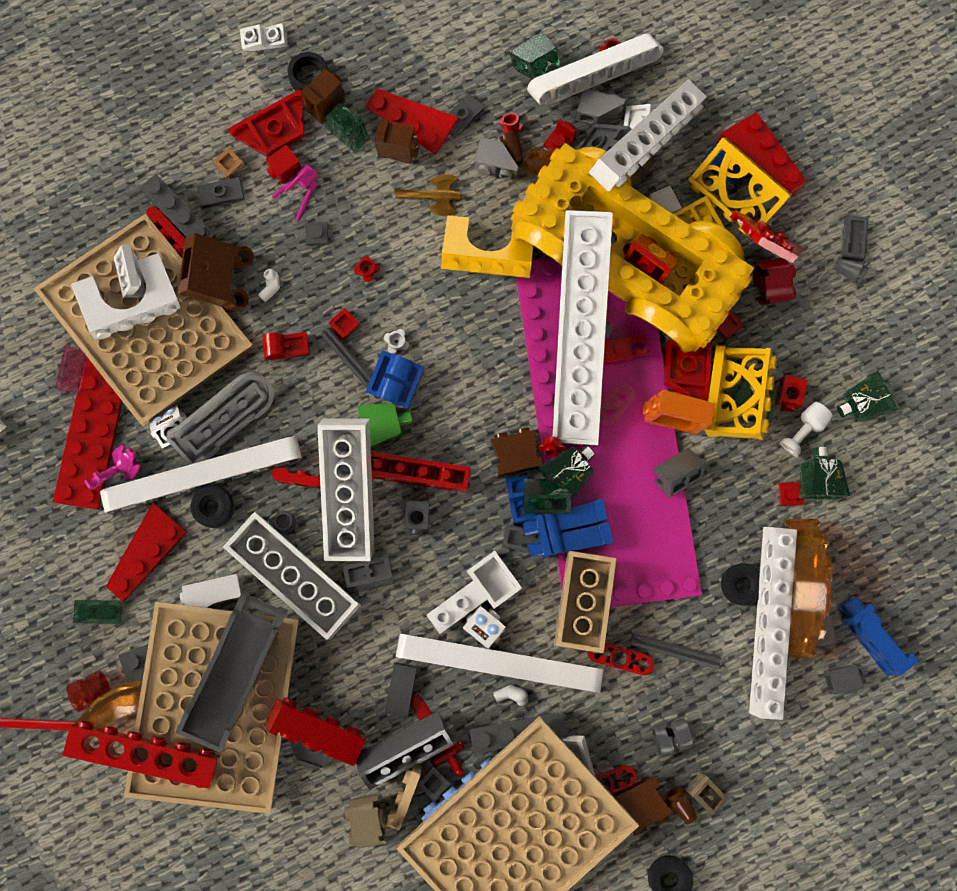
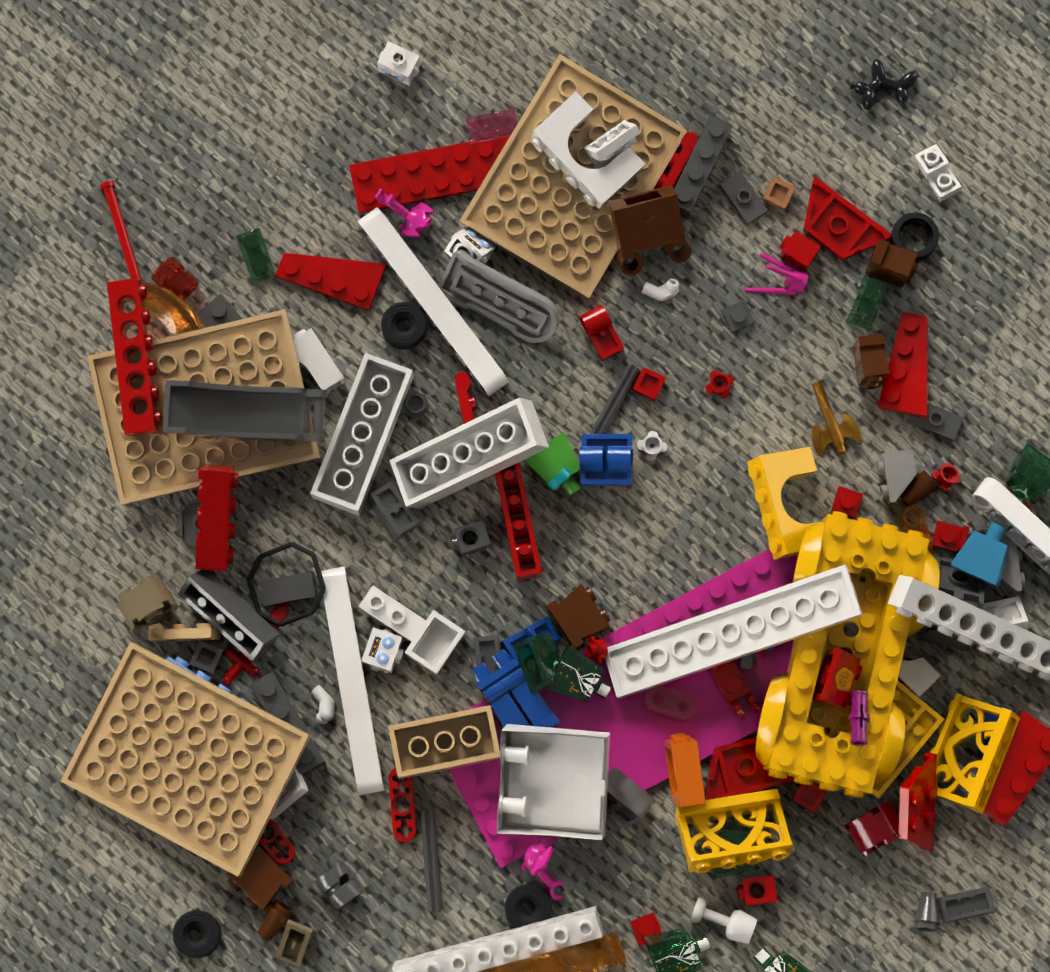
camera: 70 degrees right, 0 degrees up
(164, 50) = (878, 74): none -> black piece
(392, 721) = (318, 572): none -> black piece
(396, 422) = (560, 478): none -> teal tile
(501, 207) = (847, 501): none -> red plate
(589, 114) = (984, 556): none -> dark azure torso
(652, 521) = (553, 782): none -> white piece
(692, 251) = (859, 718): none -> magenta pin
(710, 560) = (536, 860): none -> dark pink piece

